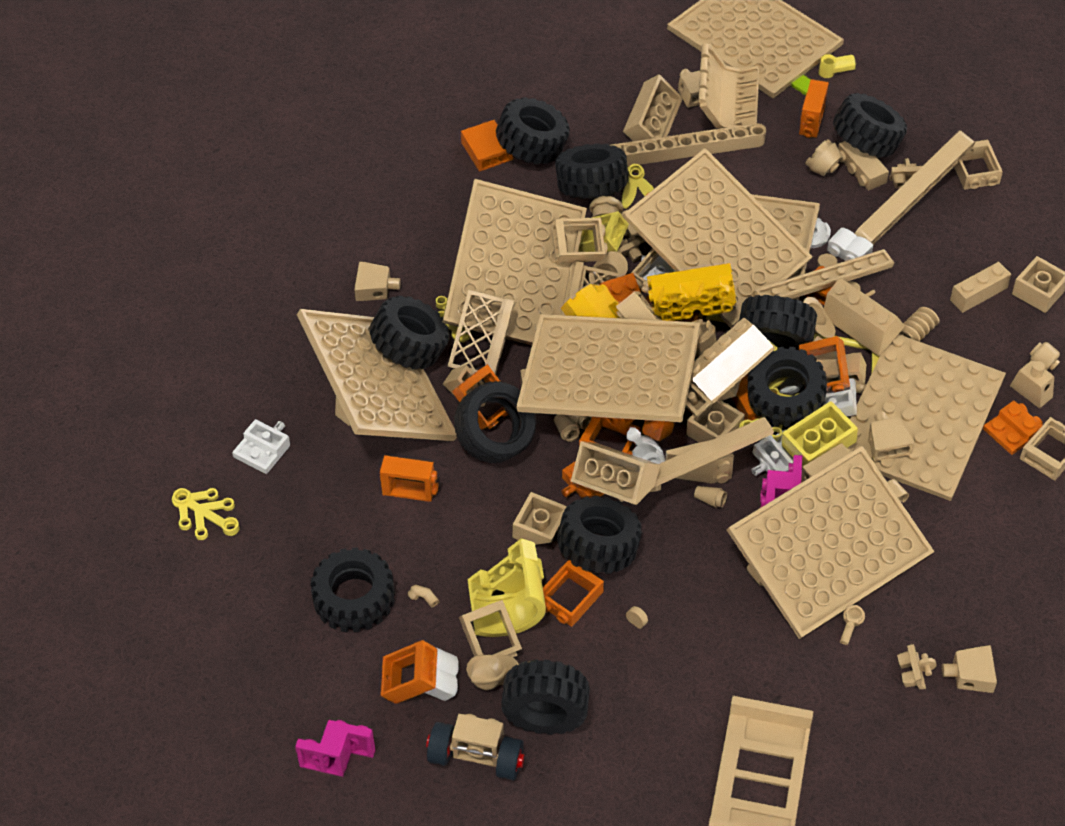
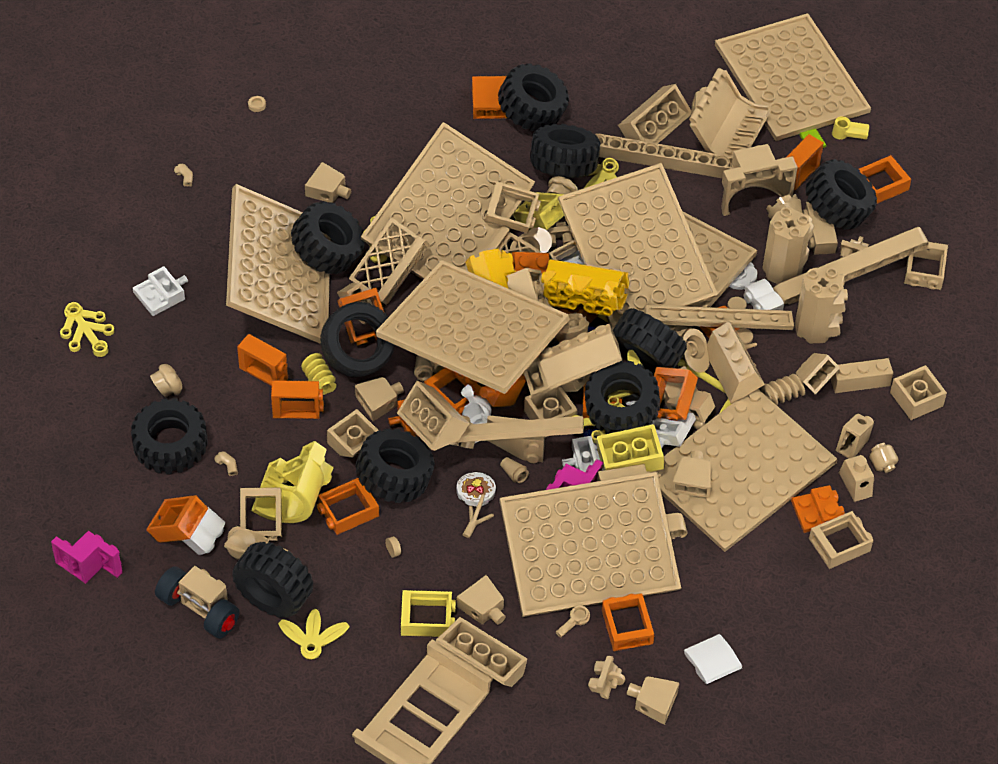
camera: 20 degrees right, 0 degrees up
(219, 316) = (183, 170): none -> tan arm
(259, 227) = (256, 103): none -> tan tile
(320, 533) = (167, 380): none -> tan piece
(459, 496) = (297, 409): none -> orange window
(468, 472) = (317, 370): none -> light yellow piece
(538, 472) = (378, 396): none -> tan torso
(607, 741) = (312, 636): none -> light yellow plant
(684, 528) = (473, 485): none -> tile
(694, 692) = (426, 598): none -> light yellow window
(700, 562) = (473, 518): none -> tan plant
(755, 639) = (482, 602): none -> tan torso
(786, 126) = (758, 169): none -> tan piece
(789, 688) = (483, 652): none -> tan slope
(852, 188) = (787, 245): none -> tan brick
(900, 91) = (896, 173): none -> orange window
(914, 622) = (633, 638): none -> orange window
(916, 232) = (821, 305): none -> tan brick
(942, 296) = (817, 371): none -> tan torso
(1002, 609) = (713, 659): none -> white slope
(1009, 337) = (857, 427): none -> tan torso

